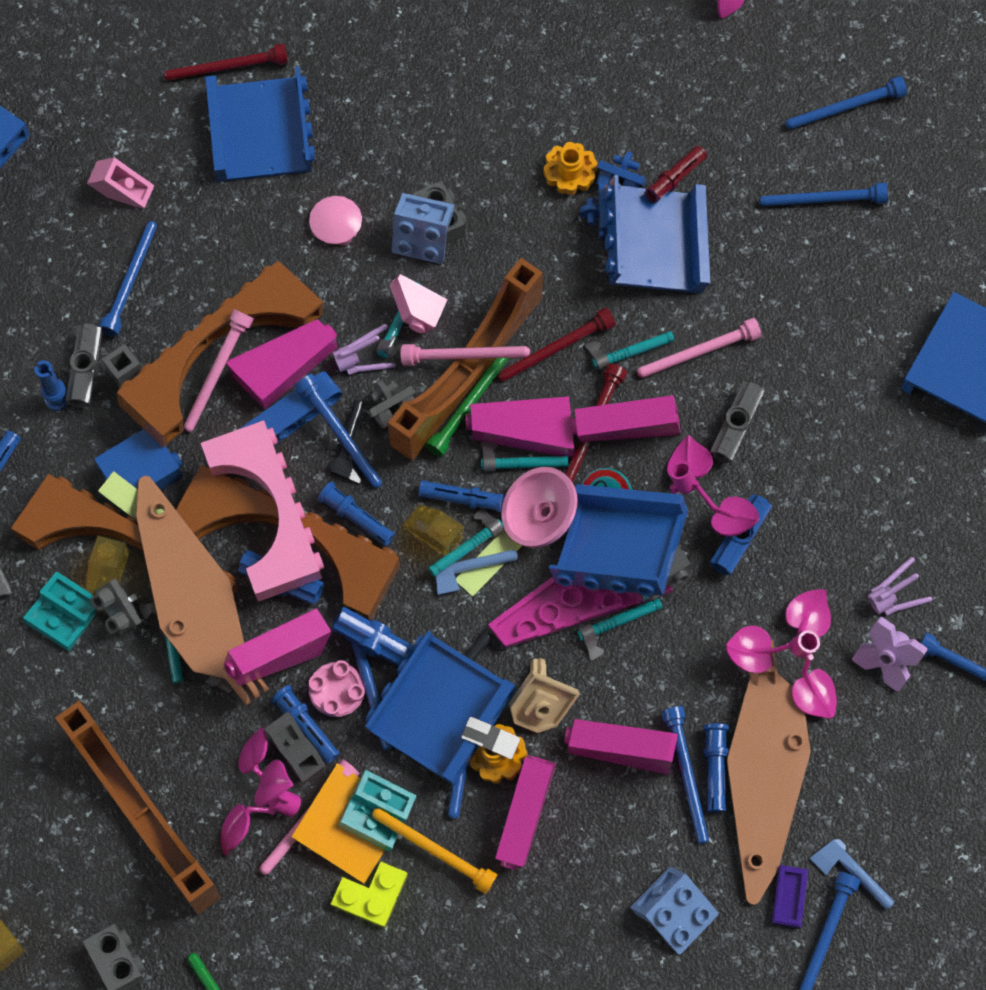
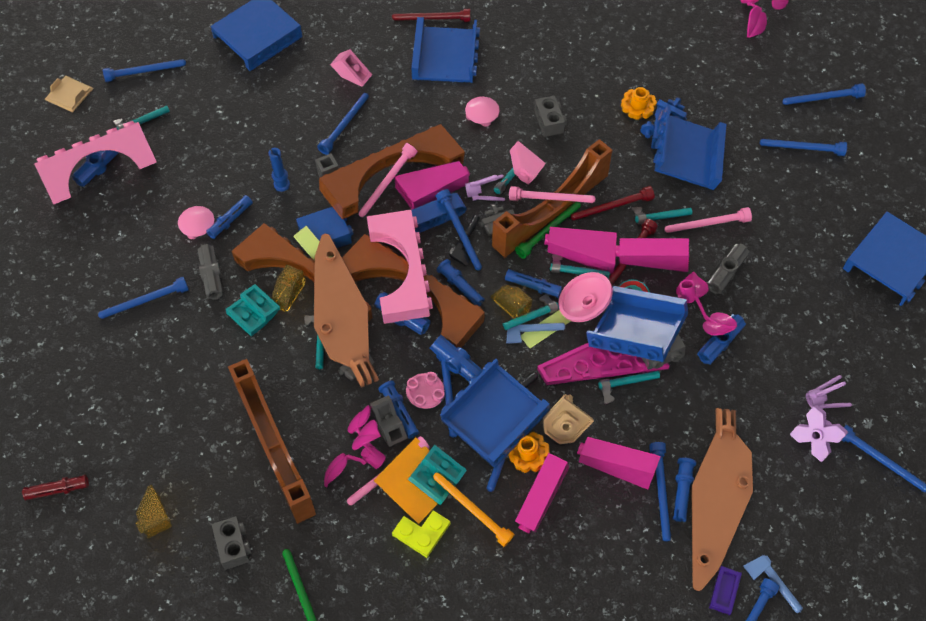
camera: 10 degrees right, 10 degrees down
(82, 380) = (303, 166): dark grey piece -> none
(118, 607) = (289, 310): dark grey hips -> none
(278, 648) = (390, 353): dark pink slope -> none
(421, 228) = (536, 120): medium blue bracket -> none
(490, 737) = (526, 436): white sticker -> none
(669, 179) = (695, 121): dark red pin -> none
(675, 909) = (640, 583): medium blue bracket -> none
(812, 617) = (764, 403): dark pink plant -> none

